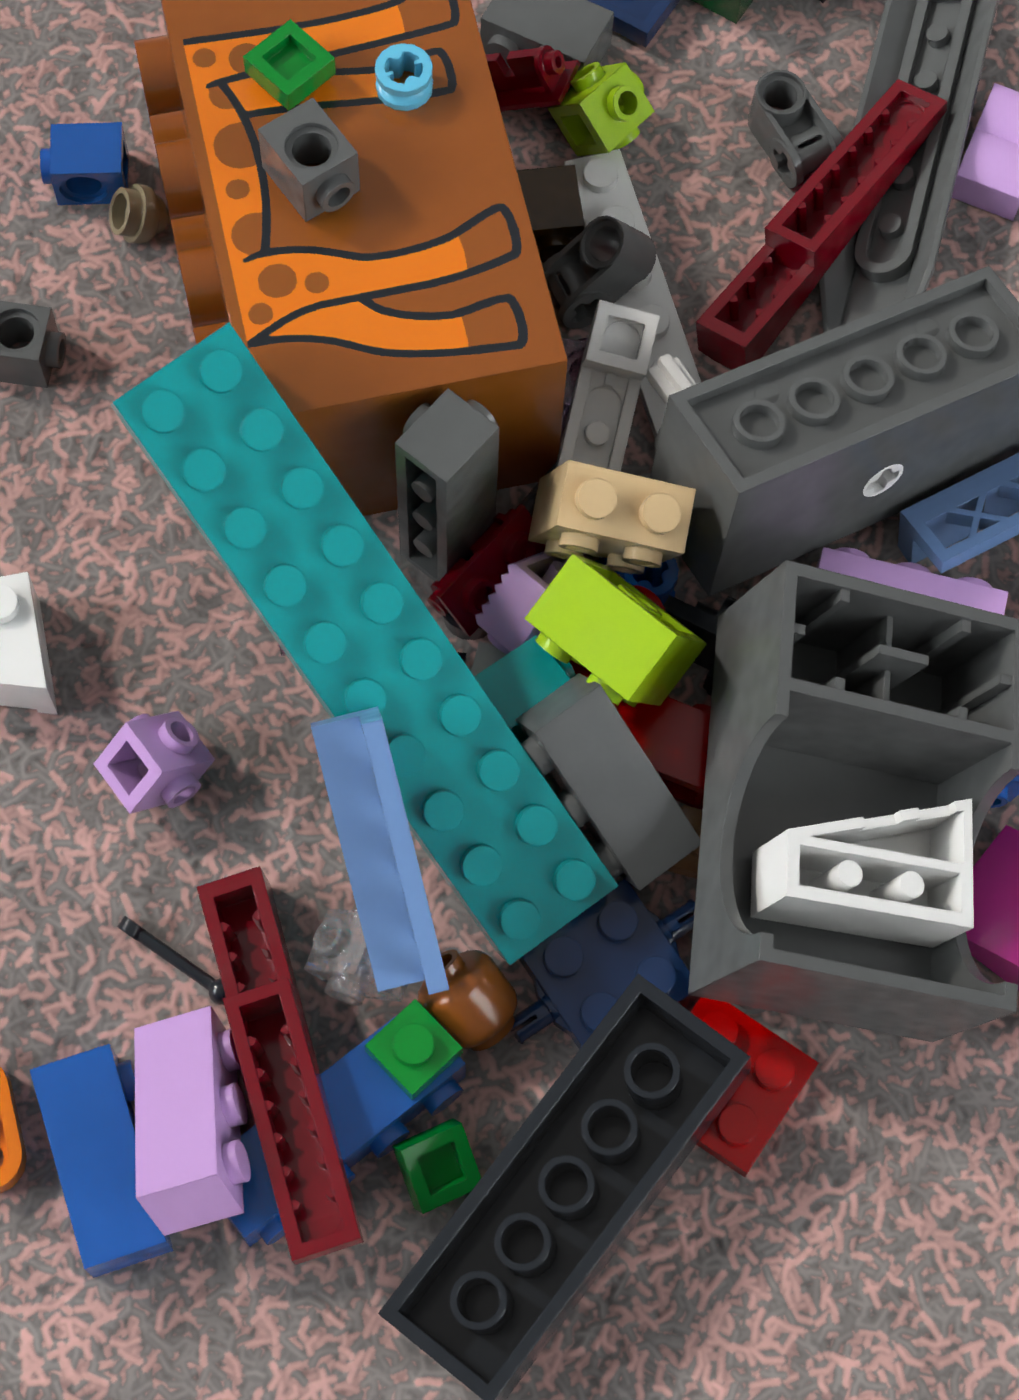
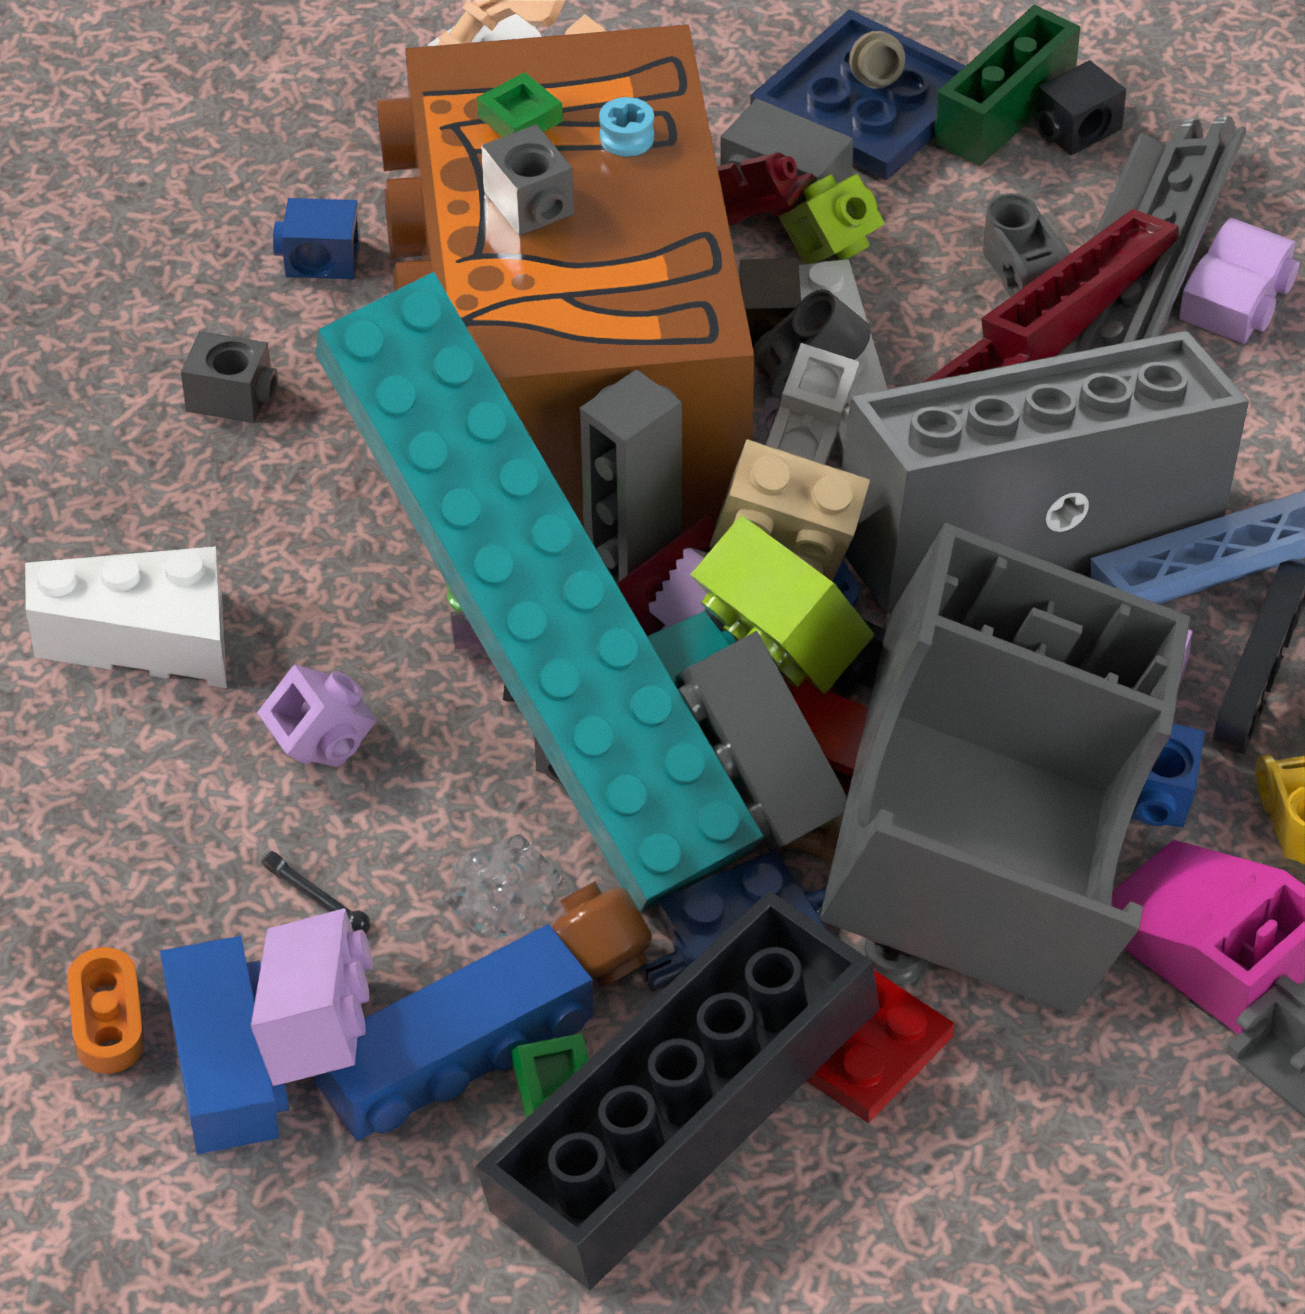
camera: 10 degrees right, 20 degrees down
(137, 213) = (362, 281): dark tan plate -> none
(279, 1066) = (405, 959): dark red slope -> none
(379, 850) = (525, 758): medium blue fence -> none
(413, 1049) = (541, 957): green plate -> none
(872, 877) = (1028, 822): white wedge -> none

